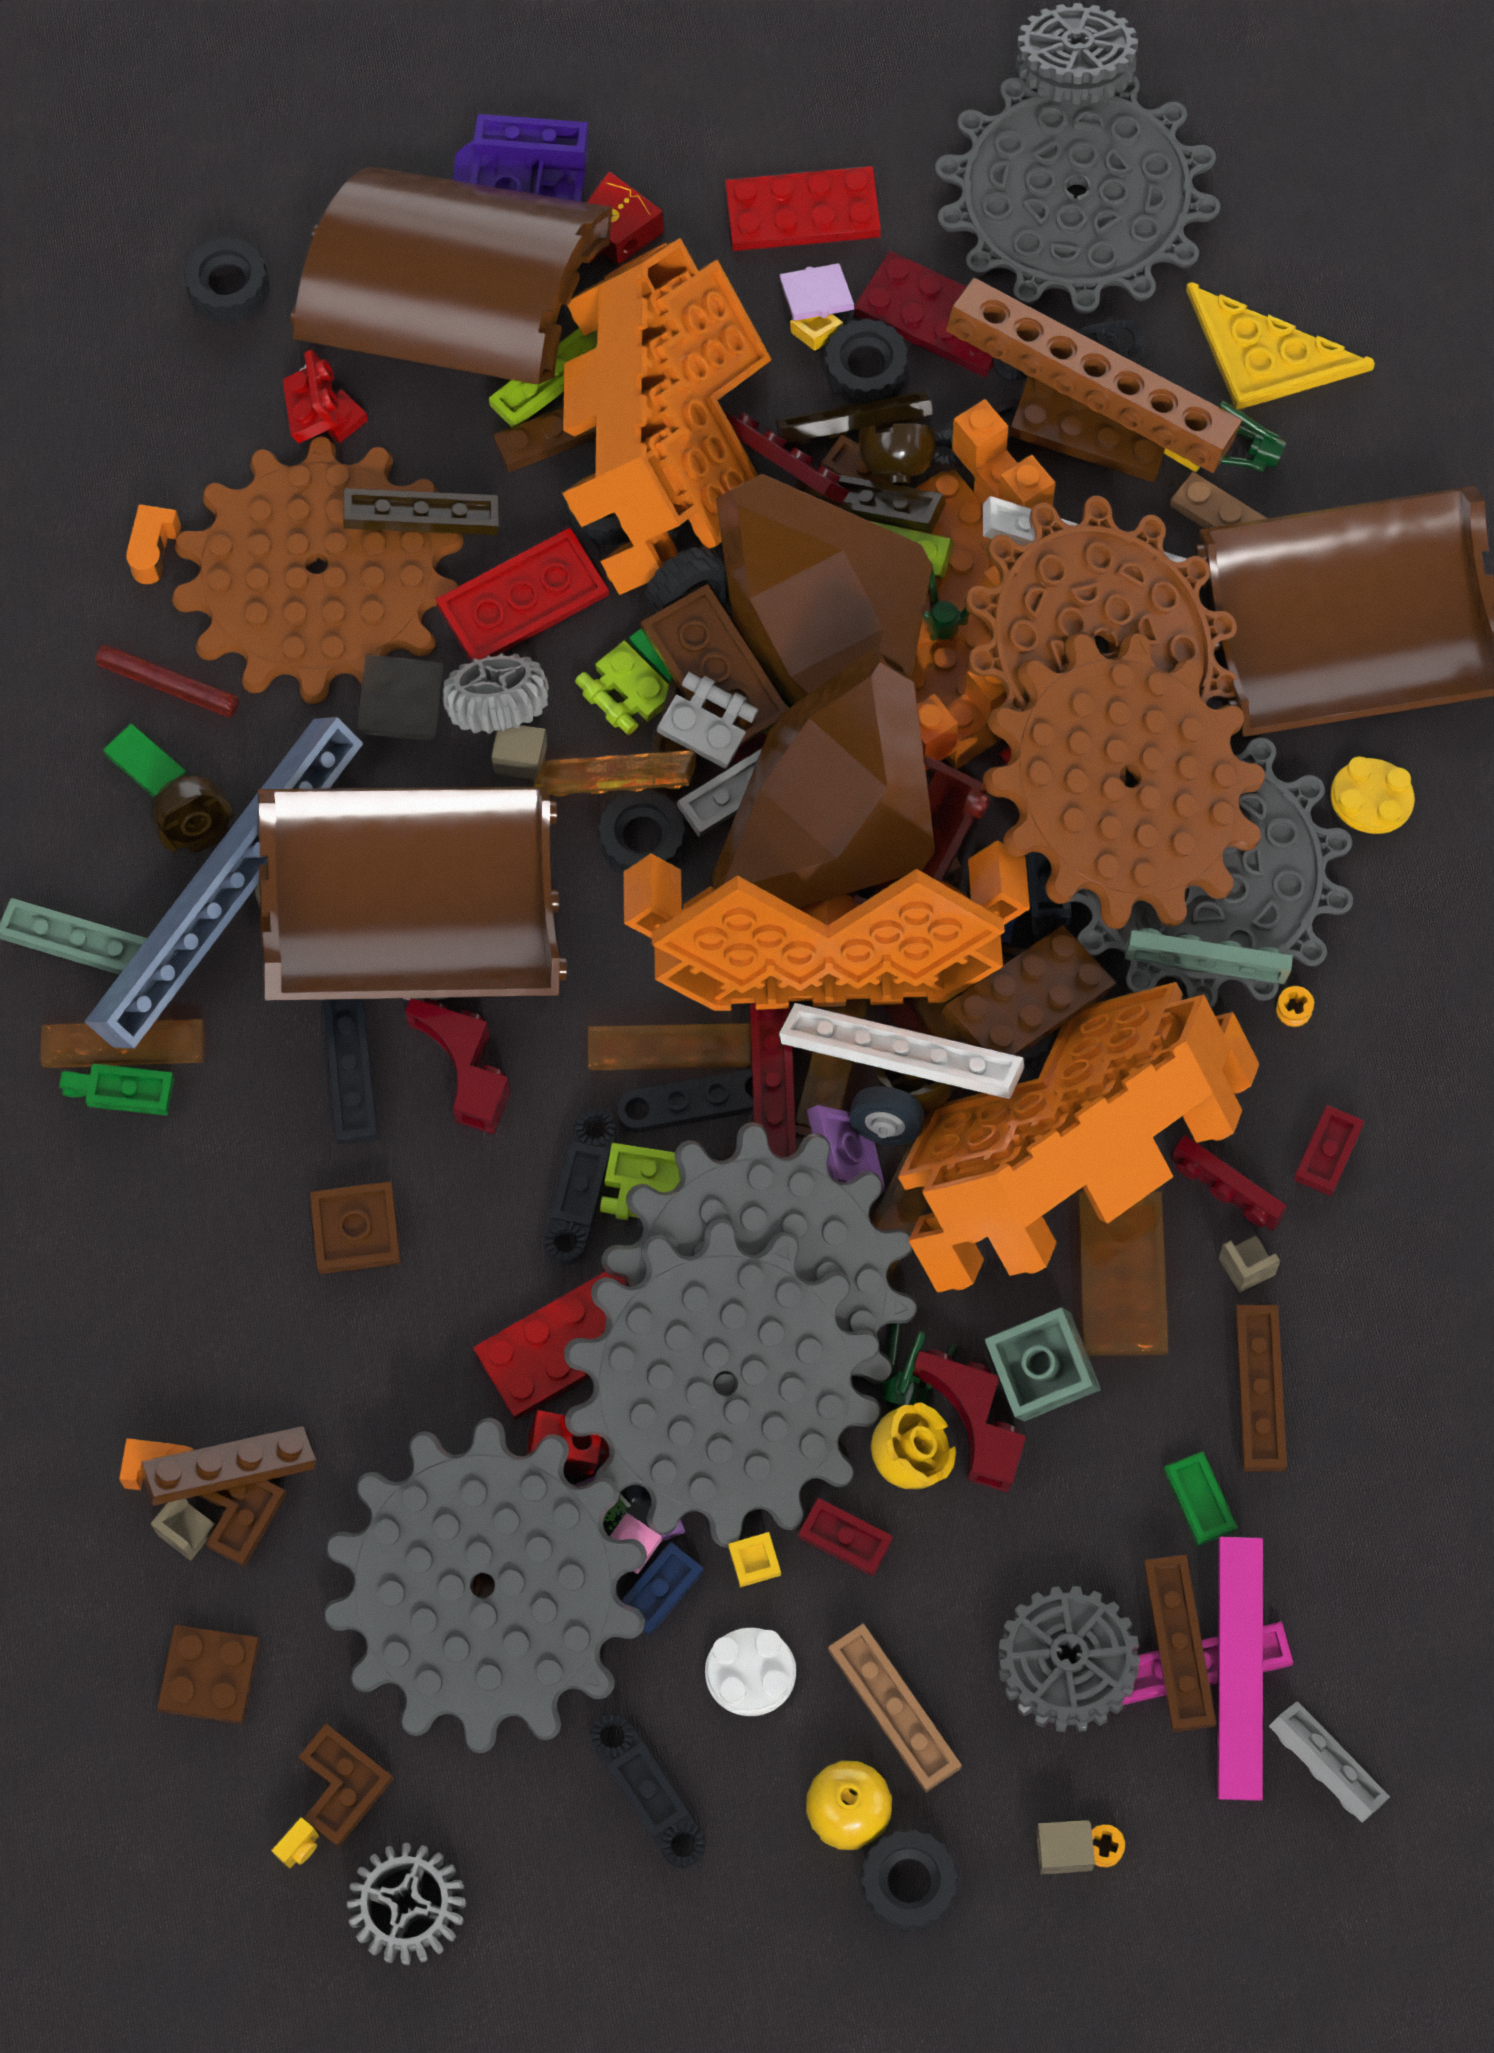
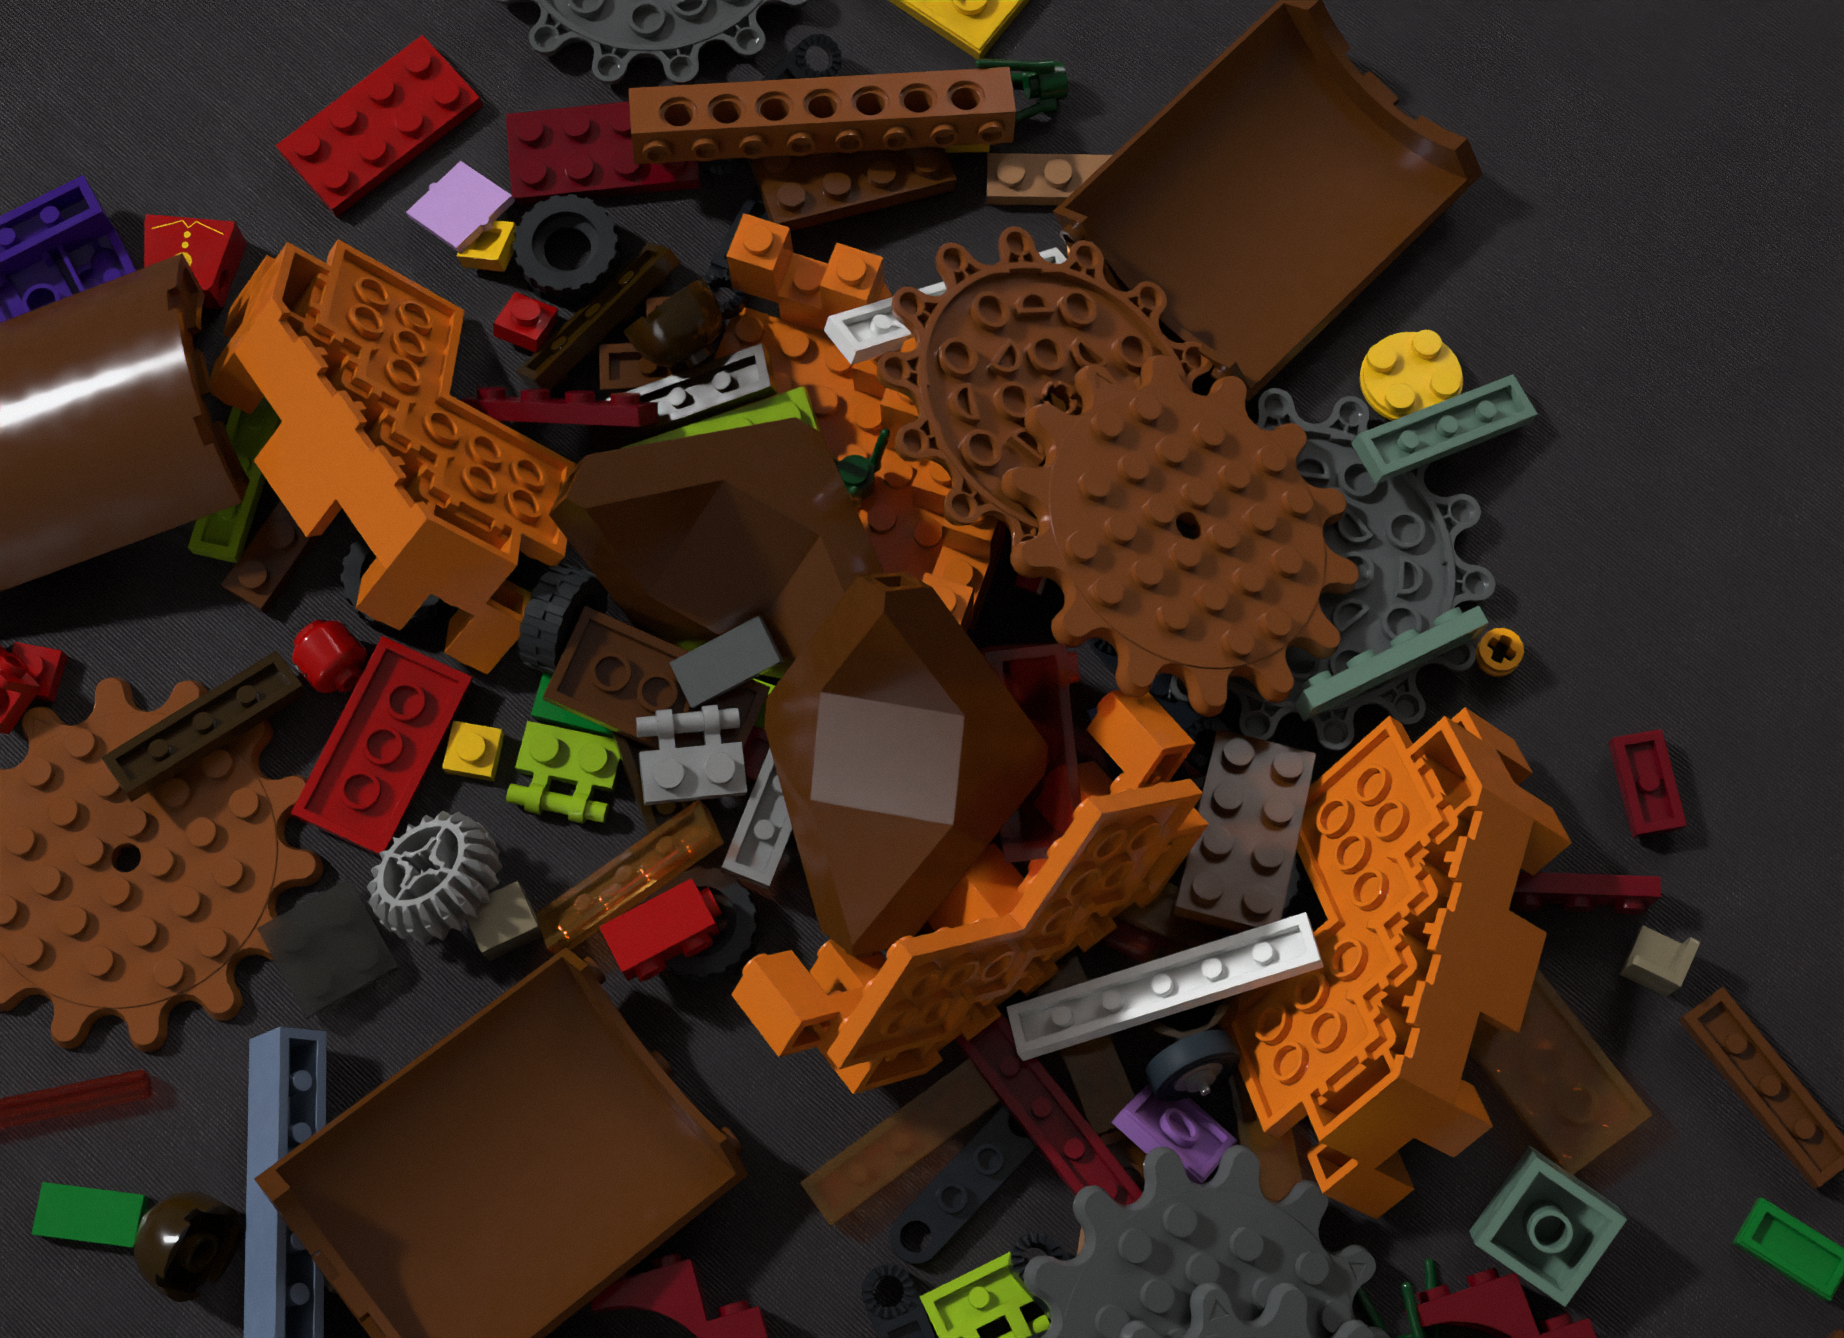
camera: 35 degrees left, 5 degrees up
(528, 519) = (329, 656): none -> red head
(577, 638) = (473, 751): none -> yellow plate
(612, 814) = (662, 929): none -> red brick
(771, 675) = (726, 662): none -> dark grey tile
(805, 391) = (525, 322): none -> red plate
(1364, 836) = (1443, 429): none -> sand green plate

